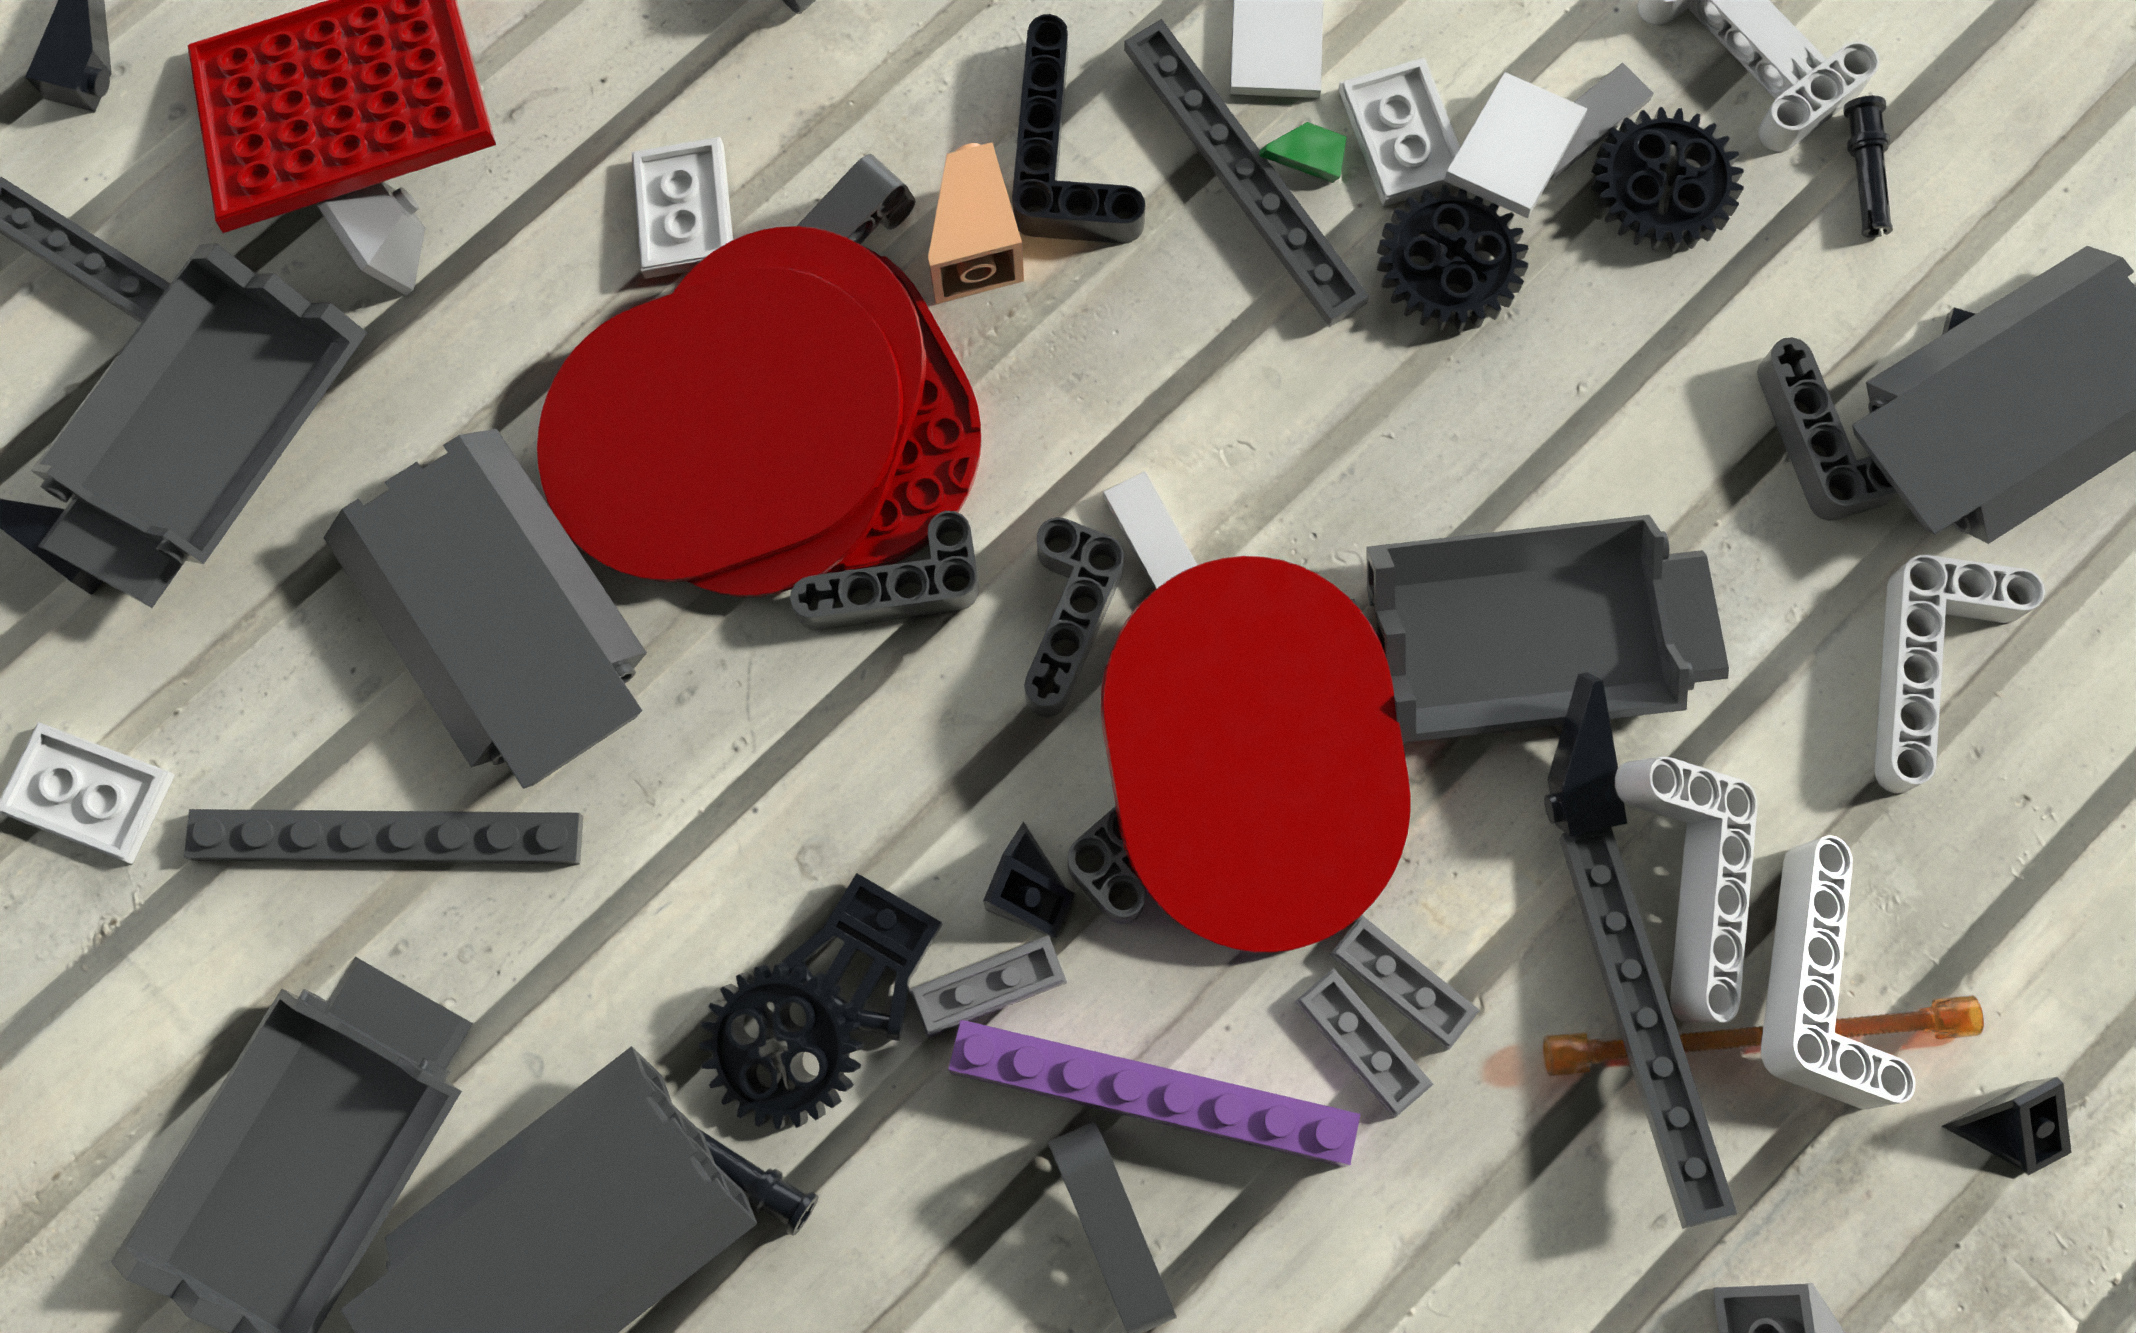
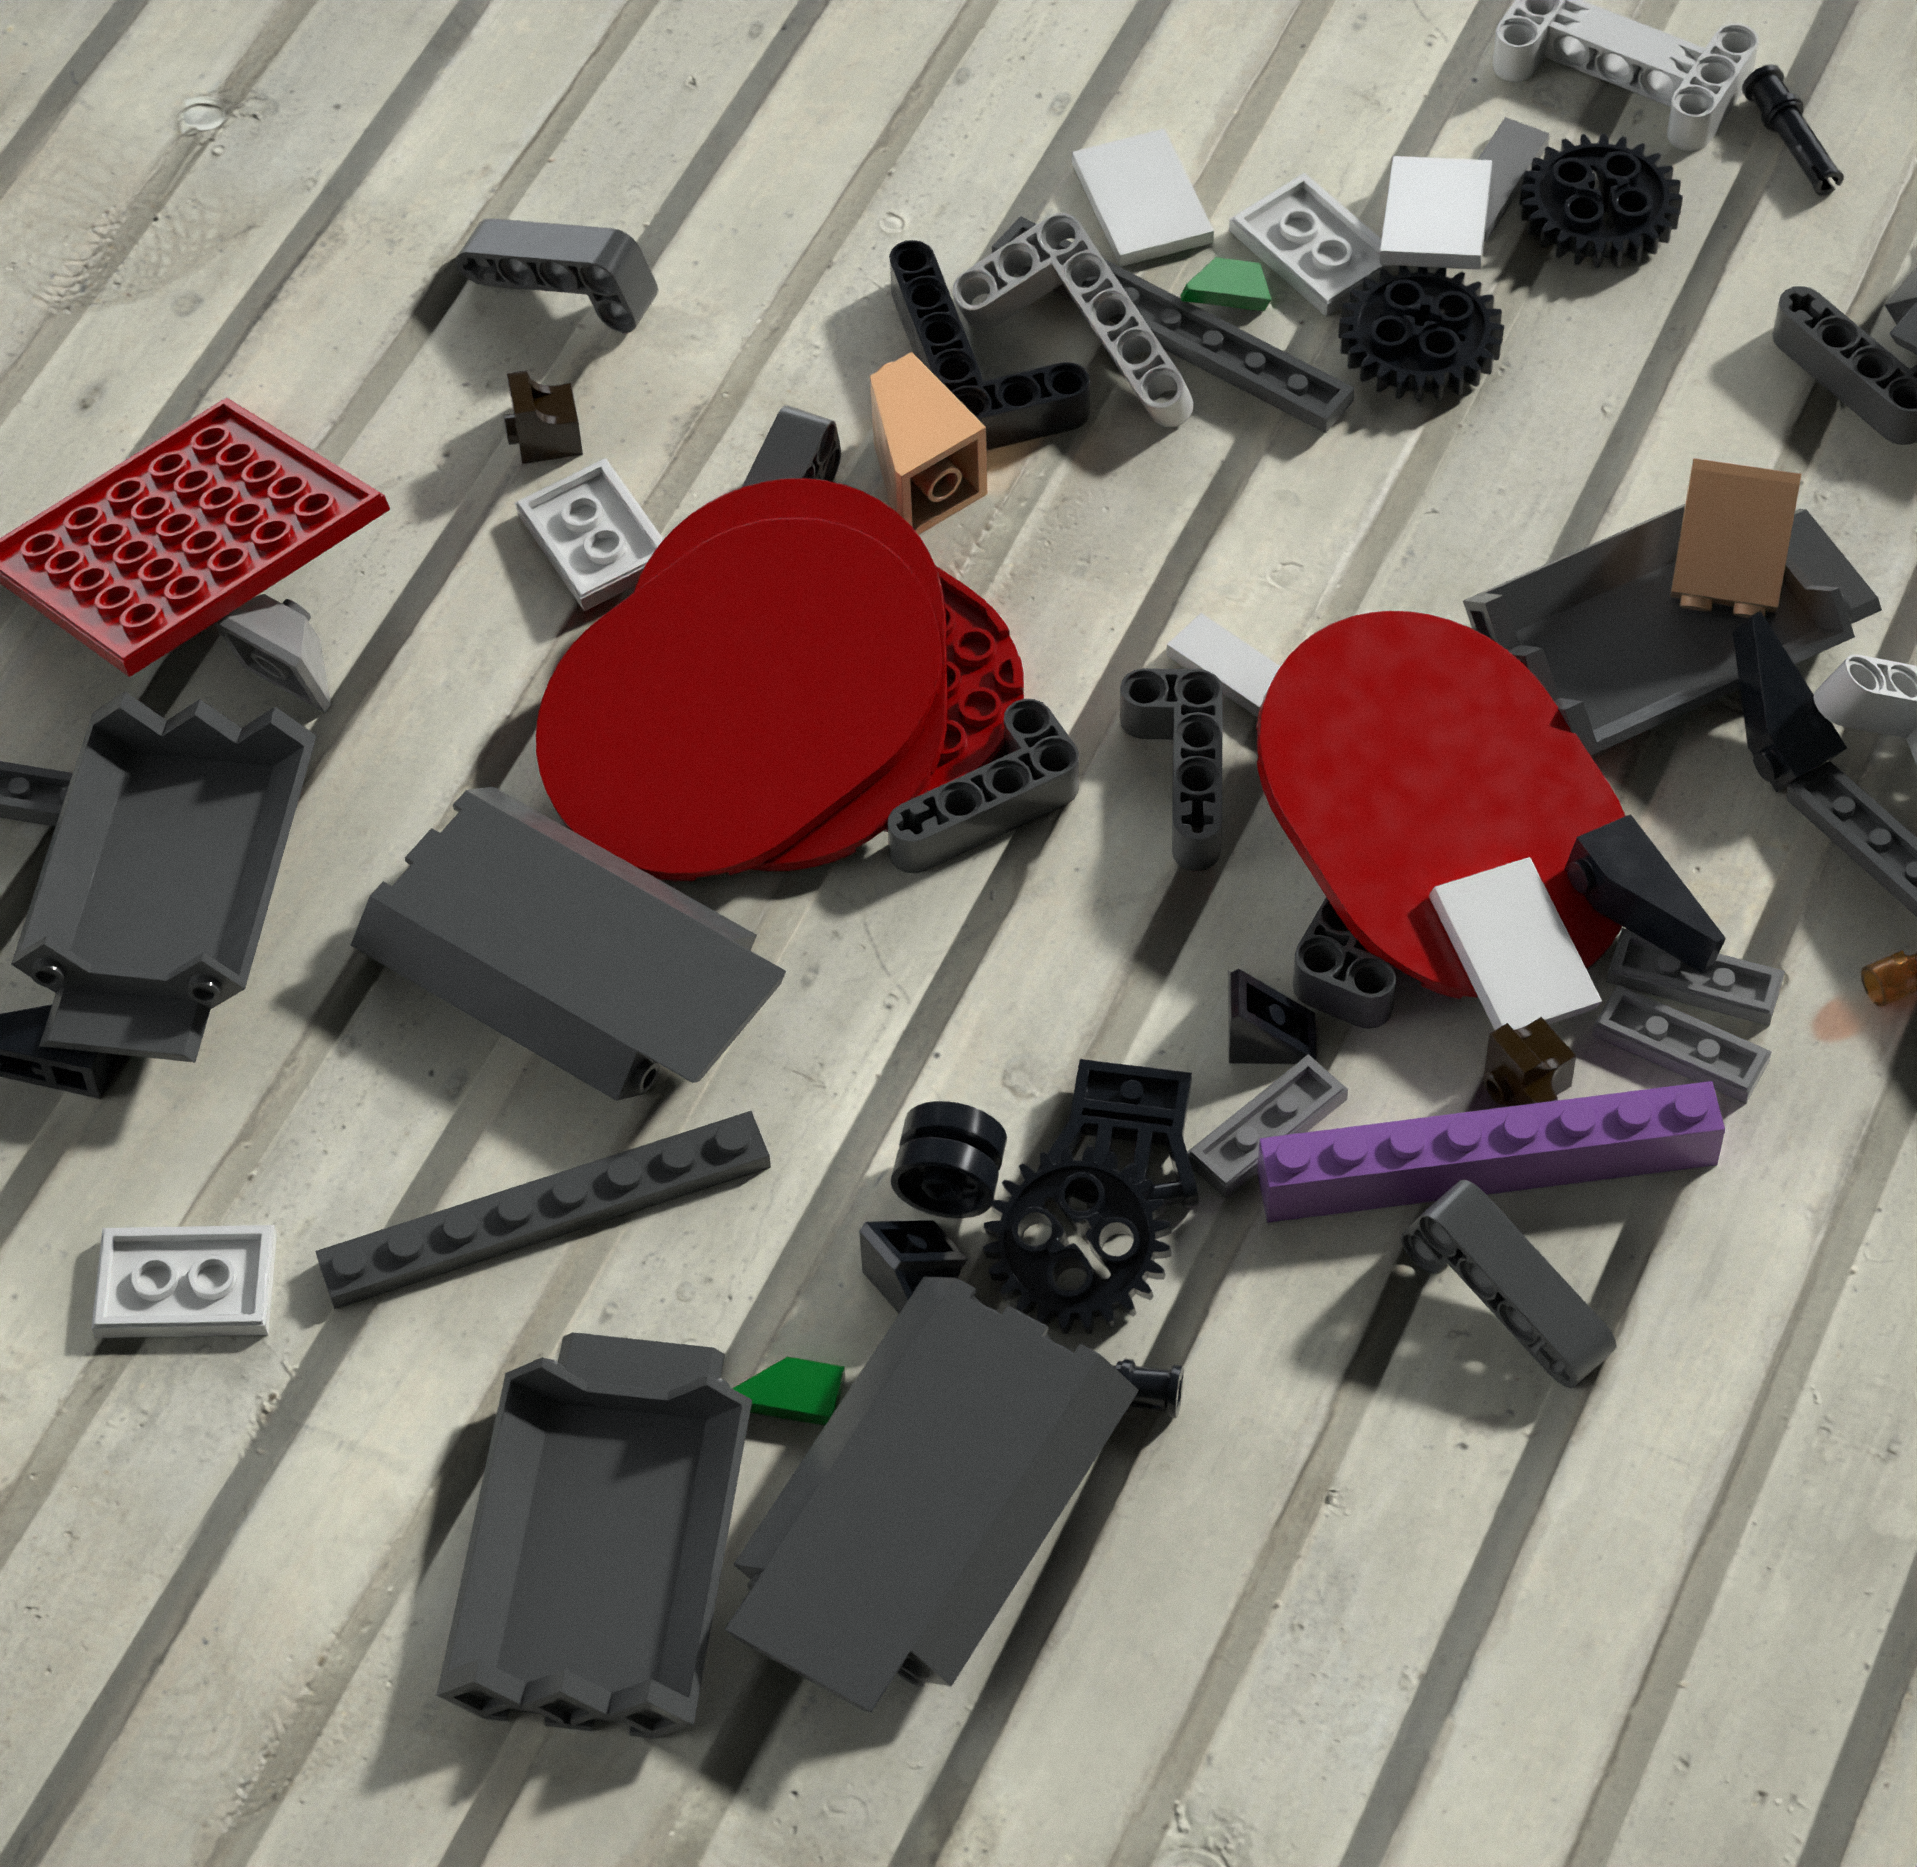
camera: 20 degrees left, 20 degrees down
(508, 1085) = (796, 1390): none -> green tile
(647, 1010) = (902, 1253): none -> black slope
(682, 80) = (542, 419): none -> dark brown brick
(706, 932) = (949, 1159): none -> black wheel
(1178, 137) = (1097, 304): none -> white beam
(1219, 1027) = (1527, 1064): none -> dark brown brick
(1255, 913) = (1515, 946): none -> white tile
(1382, 893) = (1639, 890): none -> black slope
(1621, 584) = (1734, 537): none -> light nougat slope

